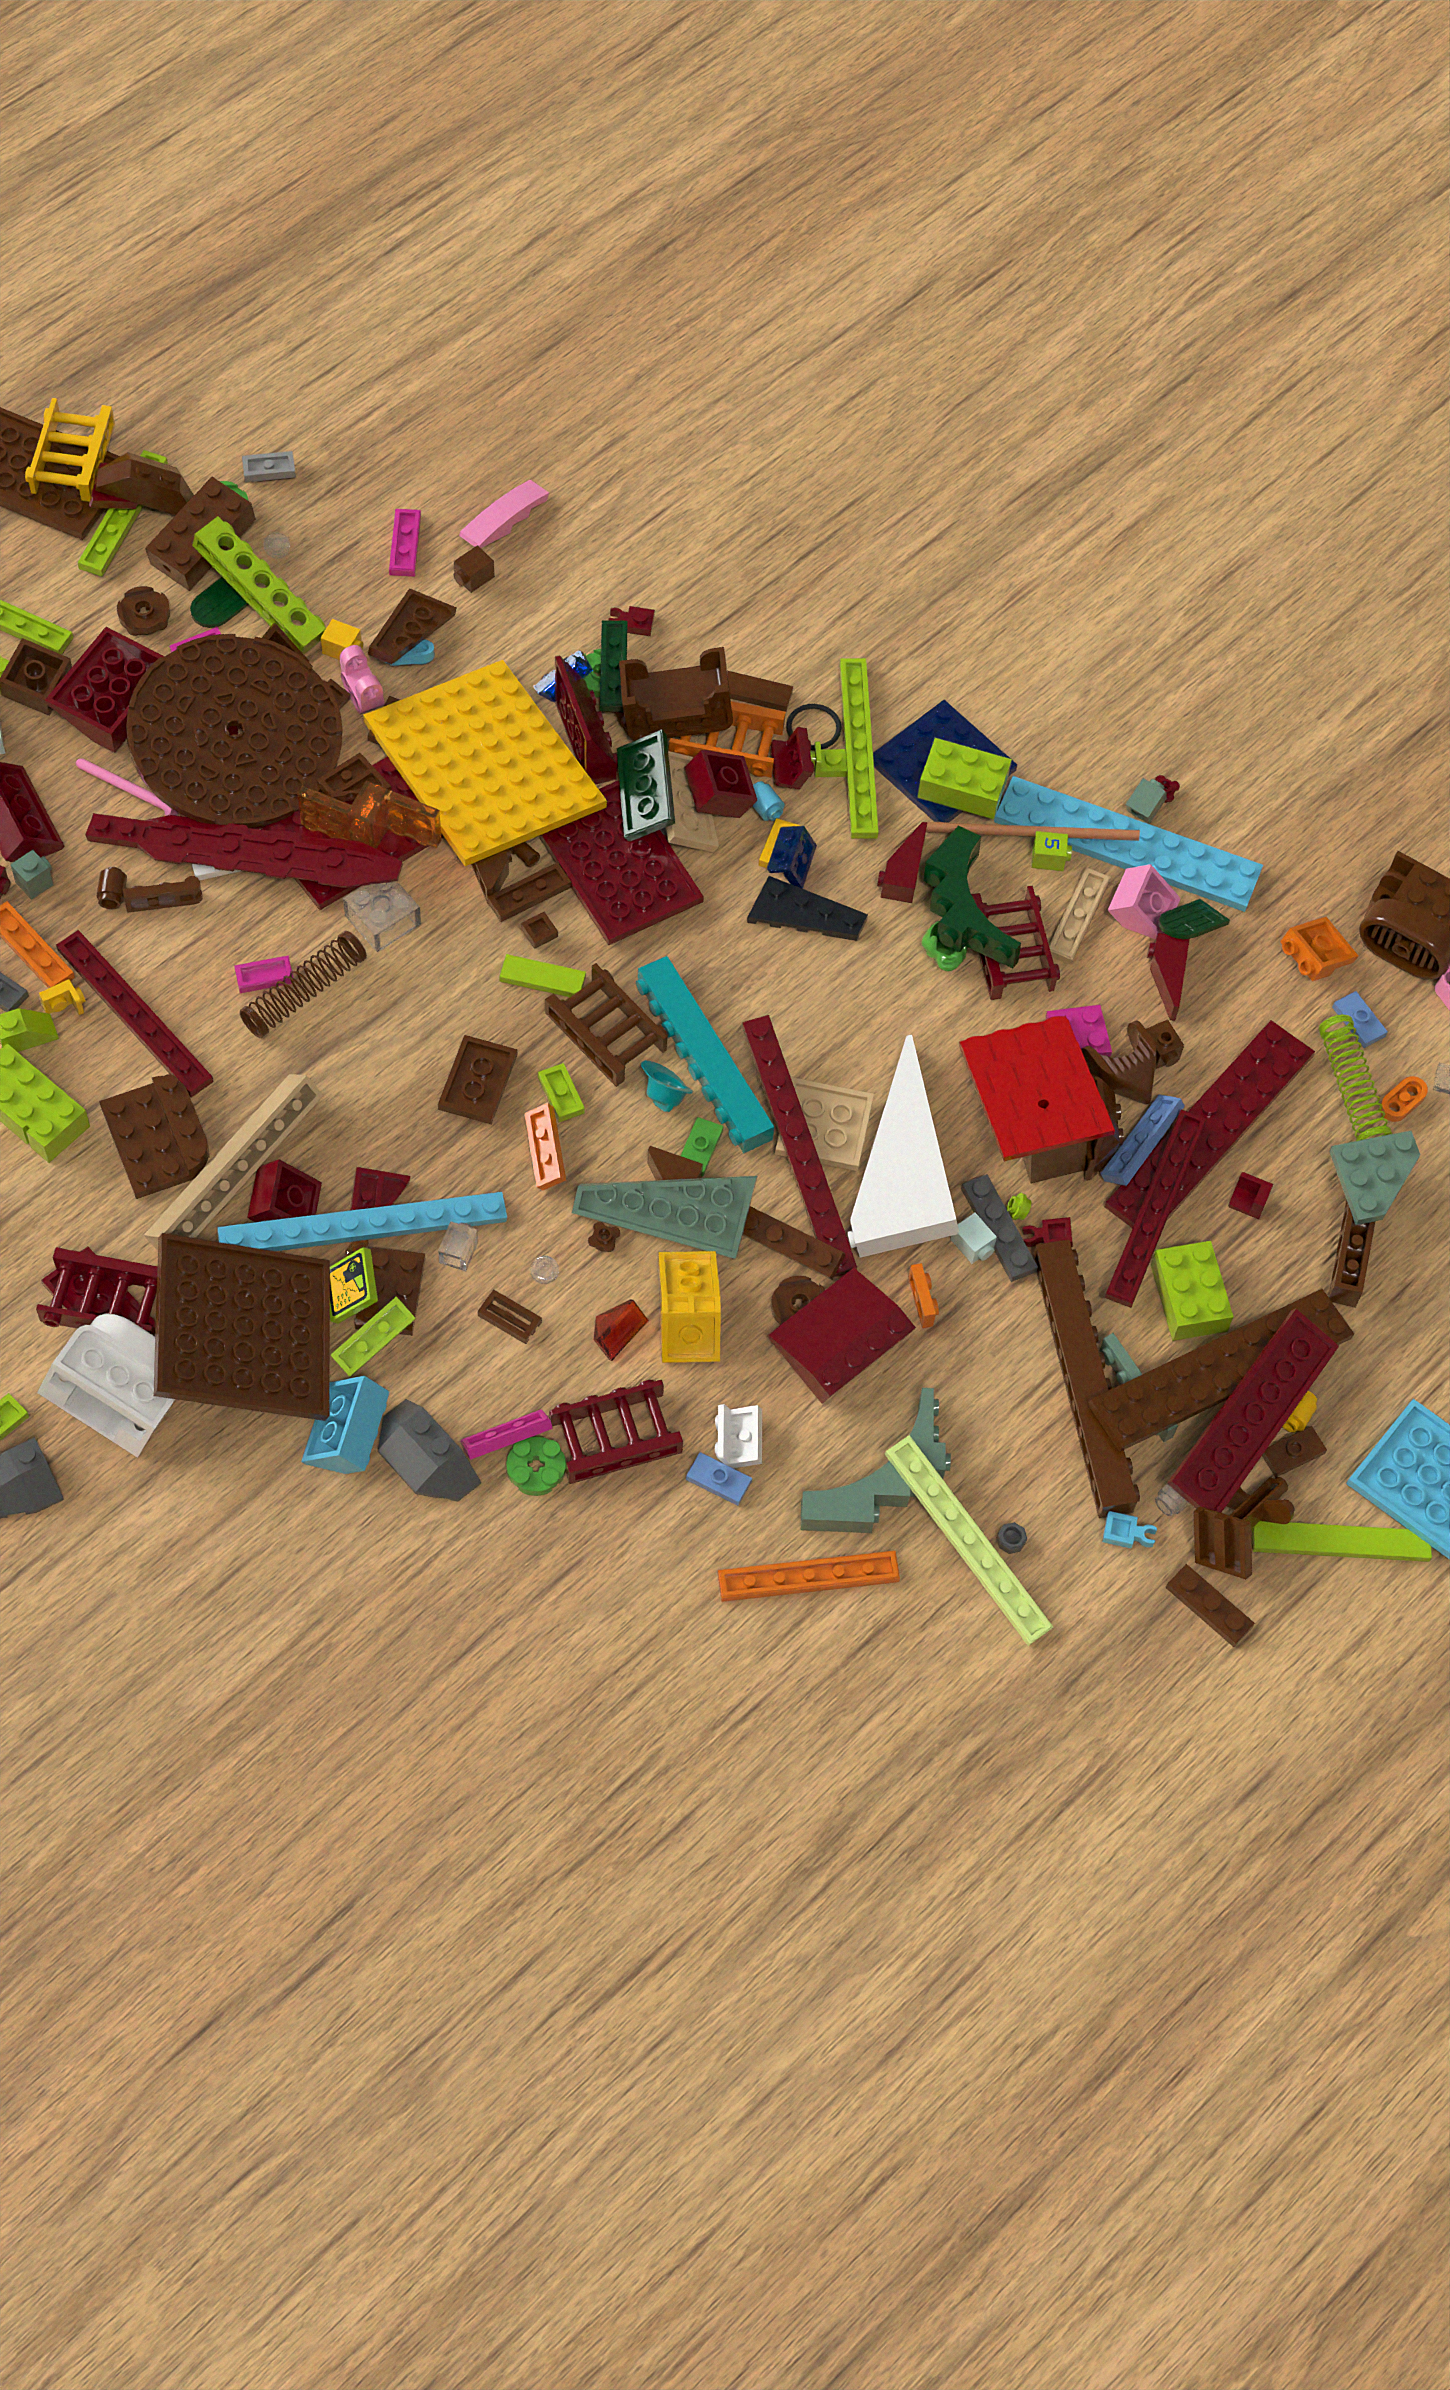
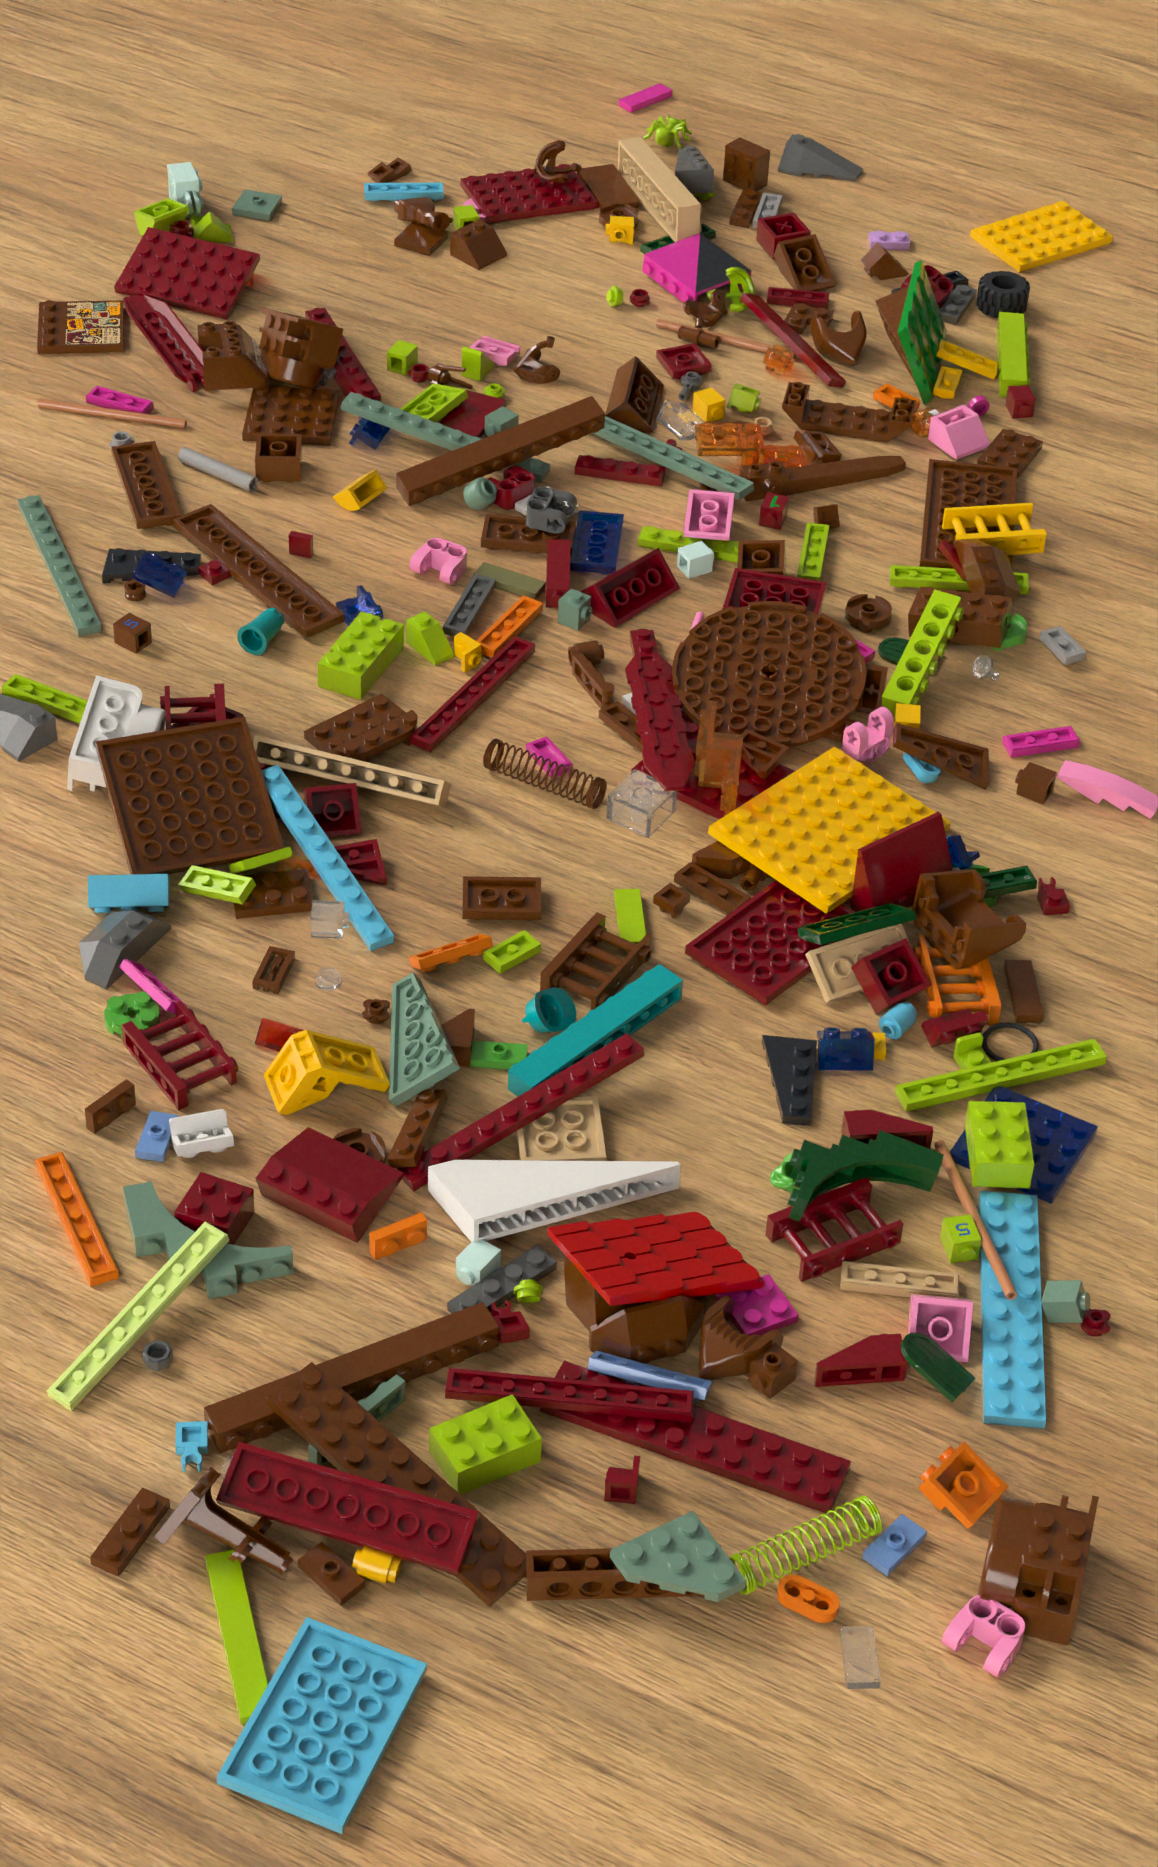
camera: 75 degrees right, 20 degrees down
(245, 887) = (622, 722): none -> reddish brown plate
(667, 1500) = (110, 1106): none -> reddish brown plate
(848, 1445) = (219, 1203): none -> dark red brick

